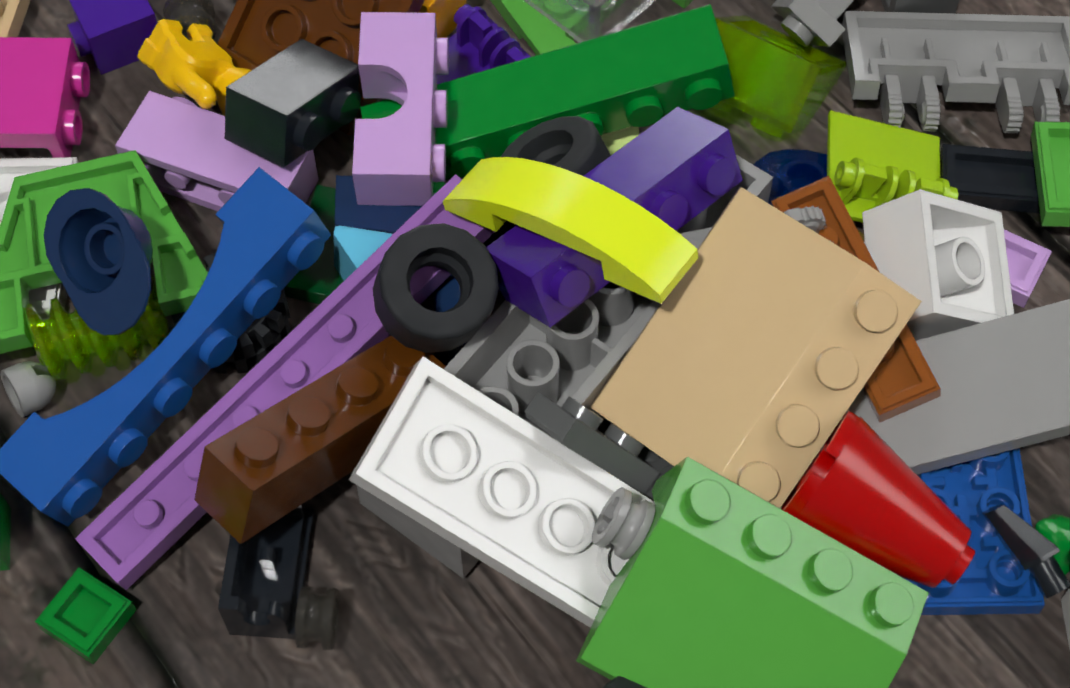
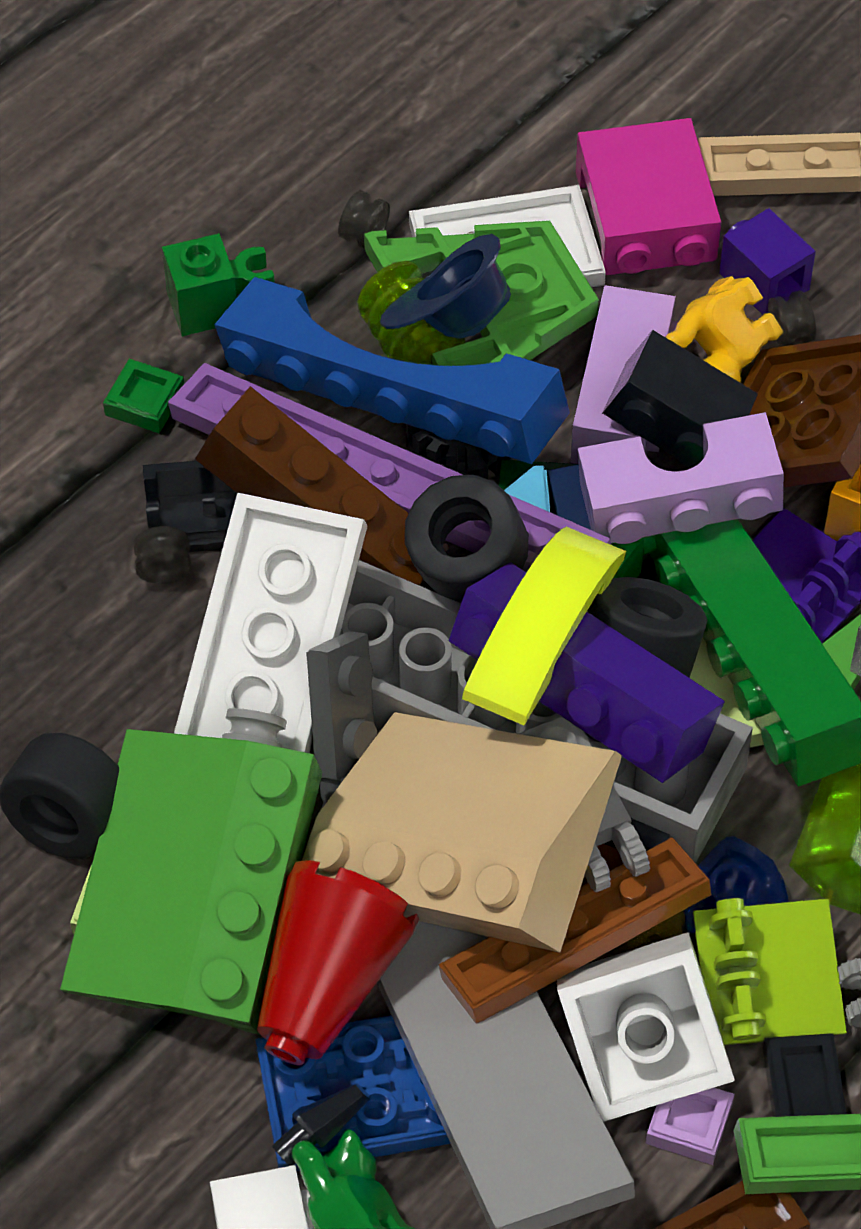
camera: 80 degrees right, 5 degrees down
(28, 386) = (343, 296): light grey hinge -> none

